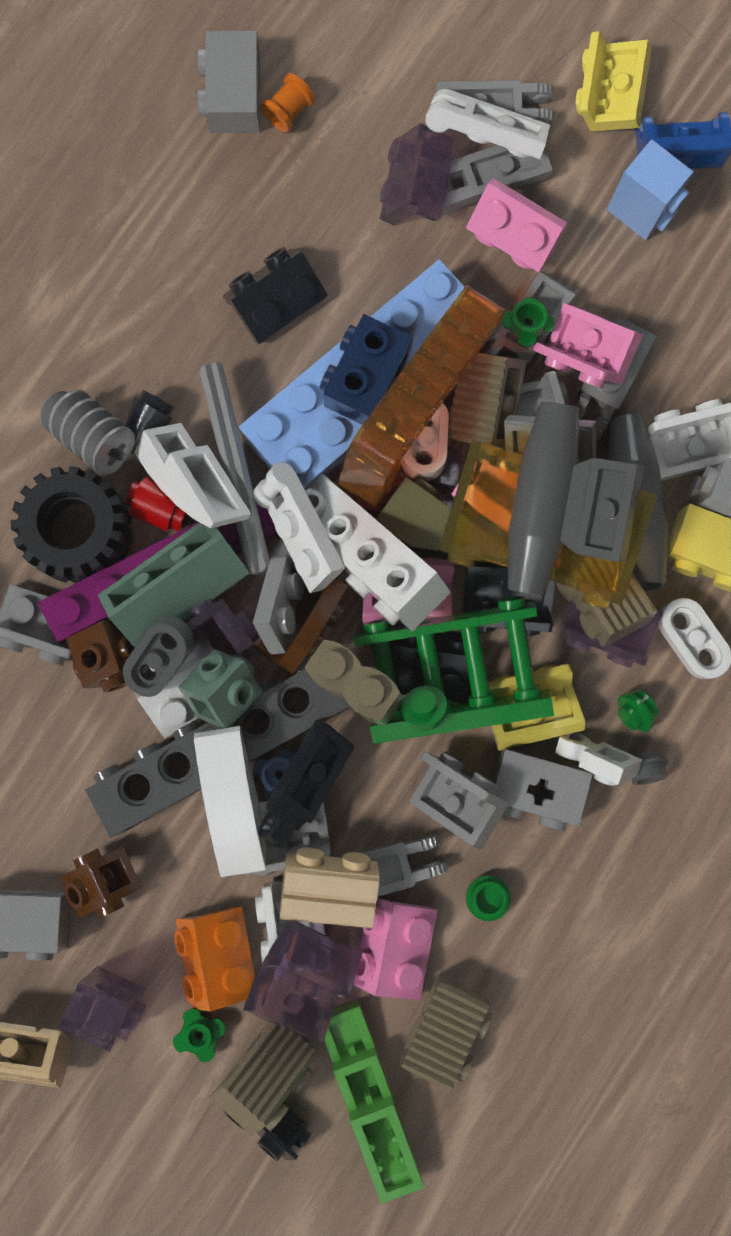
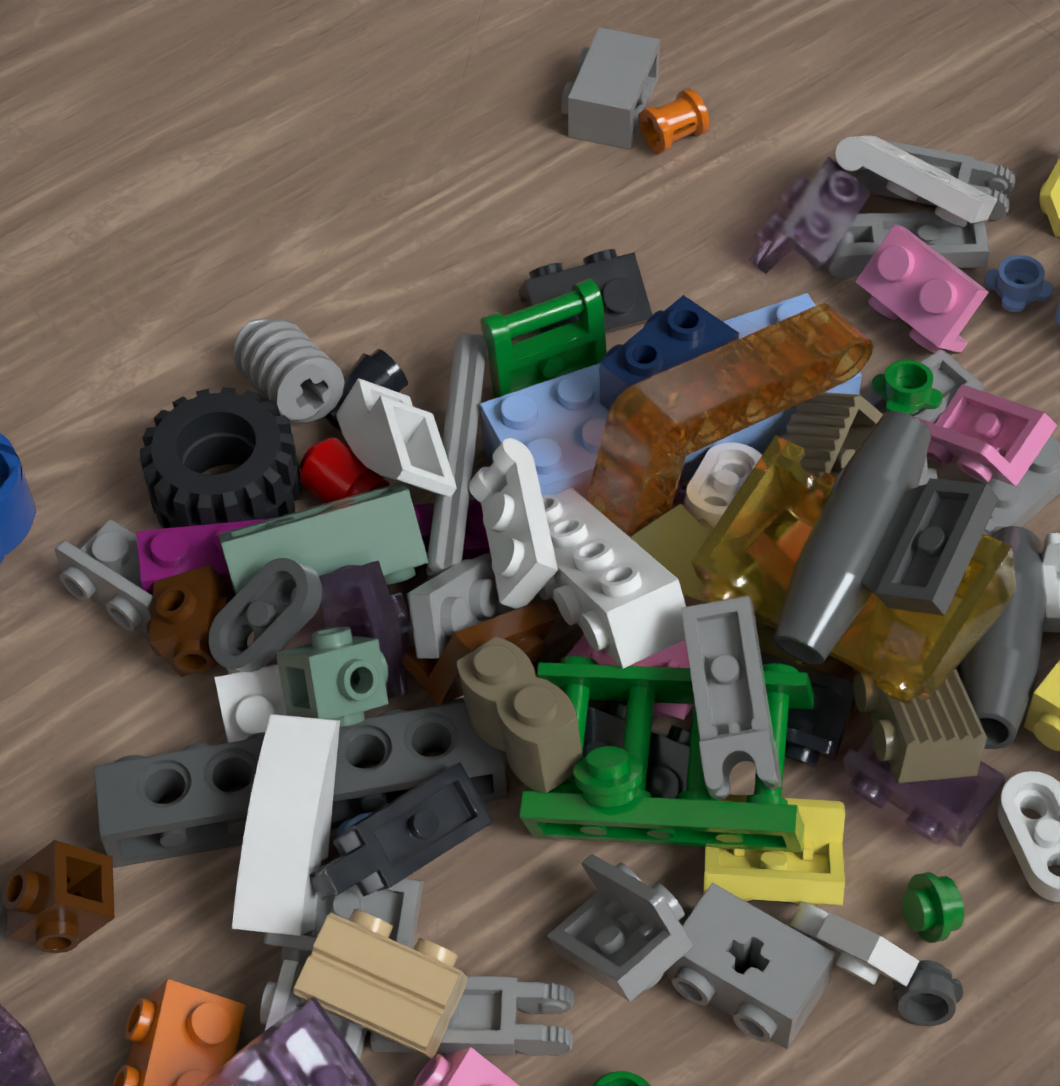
camera: 25 degrees right, 30 degrees down
(265, 352) = (551, 352): none -> green plate
(491, 639) = (729, 693): none -> light grey plate
(583, 178) = (1019, 282): none -> medium blue plate

